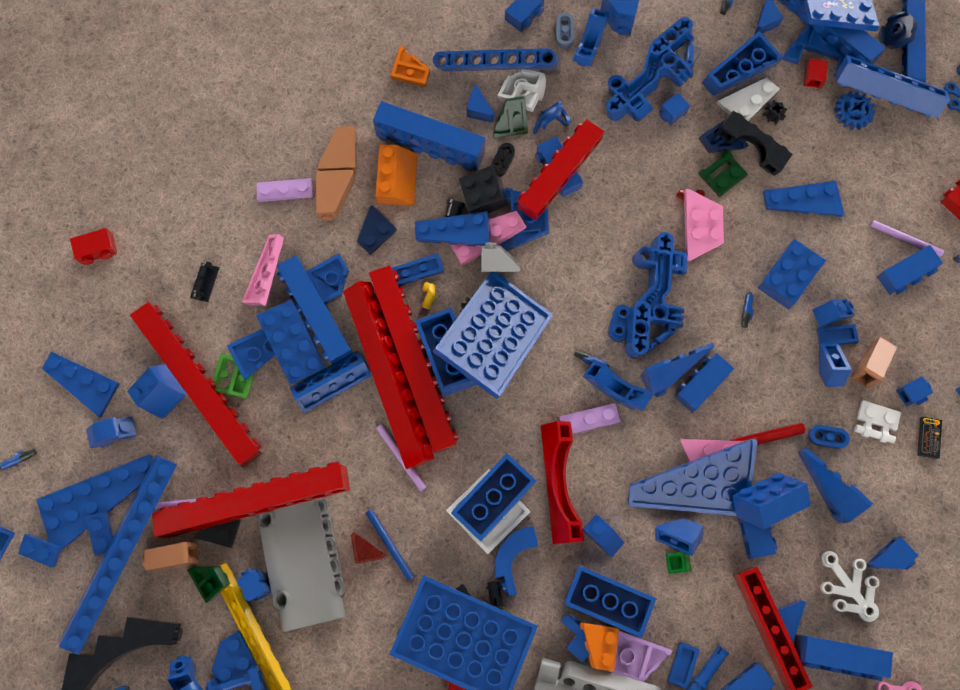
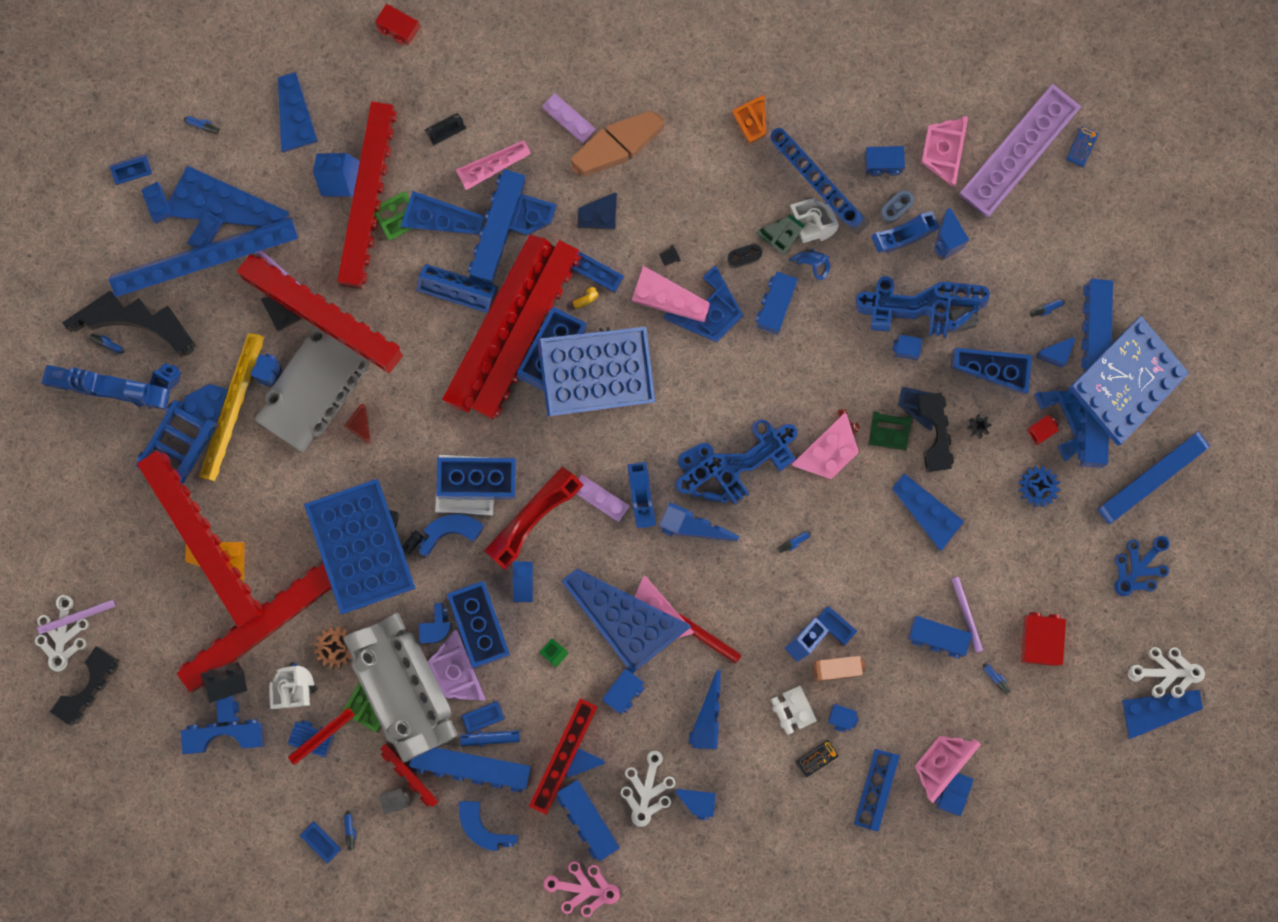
camera: 40 degrees right, 5 degrees up
(108, 430) = (279, 169): blue brick -> none
(170, 556) = (233, 295): nougat slope -> none
(209, 580) = (241, 337): dark green wing -> none
(290, 342) = (457, 232): blue plate -> none
(389, 545) = (379, 438): blue bar -> none
(394, 448) = (452, 371): lavender bar -> none
(396, 175) = (655, 189): orange slope -> none
(429, 136) = (708, 185): blue brick -> none
(461, 229) = (656, 275): blue wing -> none
(479, 107) = (768, 198): blue slope -> none
(484, 191) = (702, 265): black brick -> none
(497, 259) = (656, 324): light grey slope -> none
(560, 169) = (770, 305): red brick -> none
(588, 359) = (645, 457): piece -> none
(601, 645) = (442, 644): orange wing -> none
(680, 534) = (573, 635): blue slope -> none
(703, 382) = (704, 556): blue brick -> none
(749, 99) = (972, 399): white wing -> none
(771, 500) = (655, 676): blue brick -> none
(791, 274) = (851, 549): blue brick -> none
(828, 436) = (748, 682): blue plate -> none
(833, 312) = (851, 606): blue slope -> none
(892, 86) = (1082, 497): blue brick -> none
(905, 35) = (1149, 460): dark blue plate -> none

